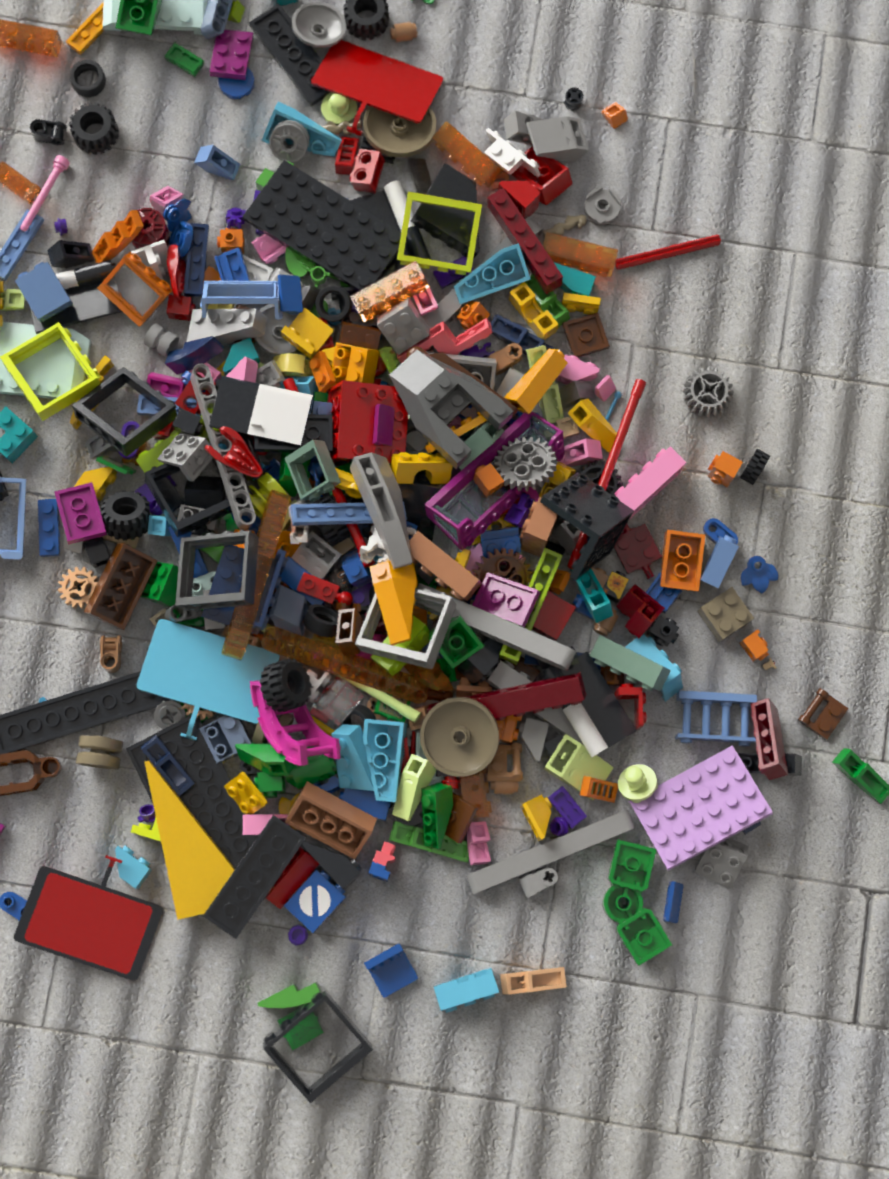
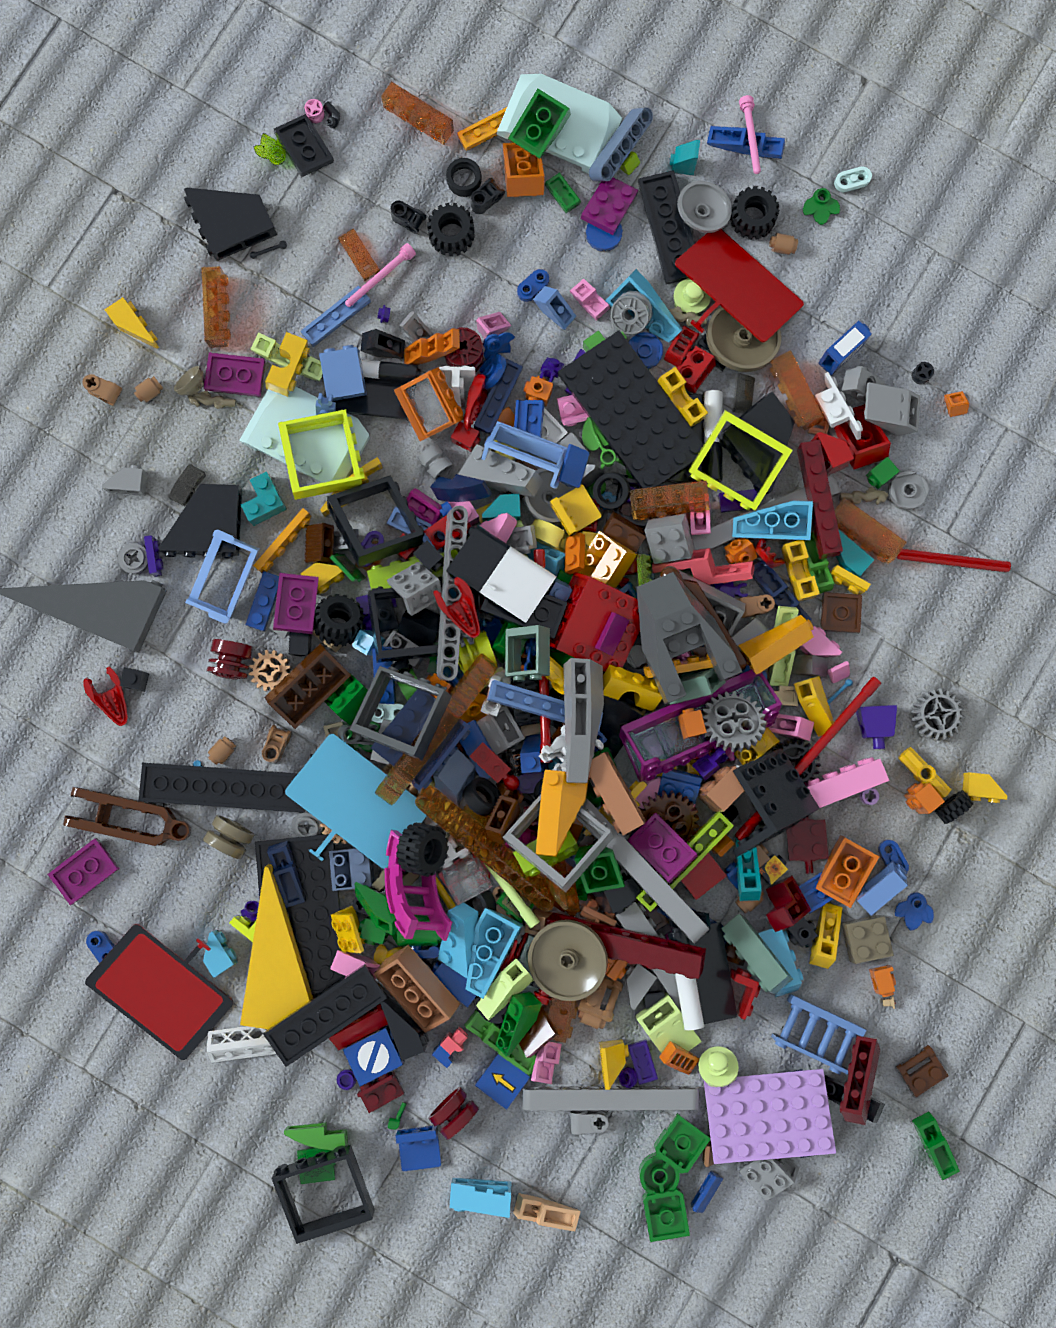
camera: 25 degrees right, 5 degrees up
(37, 325) = (325, 405): none -> medium blue plate
(37, 589) = (229, 659): none -> dark red wheel
(43, 471) = (288, 535): none -> light orange plate
(61, 678) = (221, 750): none -> medium nougat brick
(80, 453) = (319, 543): none -> reddish brown brick
(94, 227) = (415, 328): none -> light grey slope
(117, 85) = (489, 194): none -> black piece
(140, 54) = (522, 172): none -> orange slope
(189, 150) = (533, 285): none -> blue plate
(191, 943) = (240, 1049): none -> white fence
(246, 145) = (589, 299): none -> bright pink slope
(317, 167) = (648, 348): none -> blue tile
(334, 933) = (380, 1092): none -> dark red bracket
(353, 190) = (673, 385): none -> yellow arch
(359, 957) = (394, 1123): none -> green hand
(410, 921) = (453, 1113): none -> dark red wheel
(444, 877) = (502, 1081): none -> blue tile
(494, 101) = (845, 347): none -> blue brick
(499, 308) = (766, 556): none -> red animal
(573, 199) = (882, 473): none -> green brick
(657, 420) = (877, 723): none -> dark purple torso
(660, 868) = (707, 1156): none -> medium nougat slope
(681, 491) = (872, 801): none -> lavender bush
(689, 628) = (826, 943): none -> yellow slope
(706, 442) = (916, 764): none -> yellow piece
(774, 440) = (982, 786): none -> yellow slope

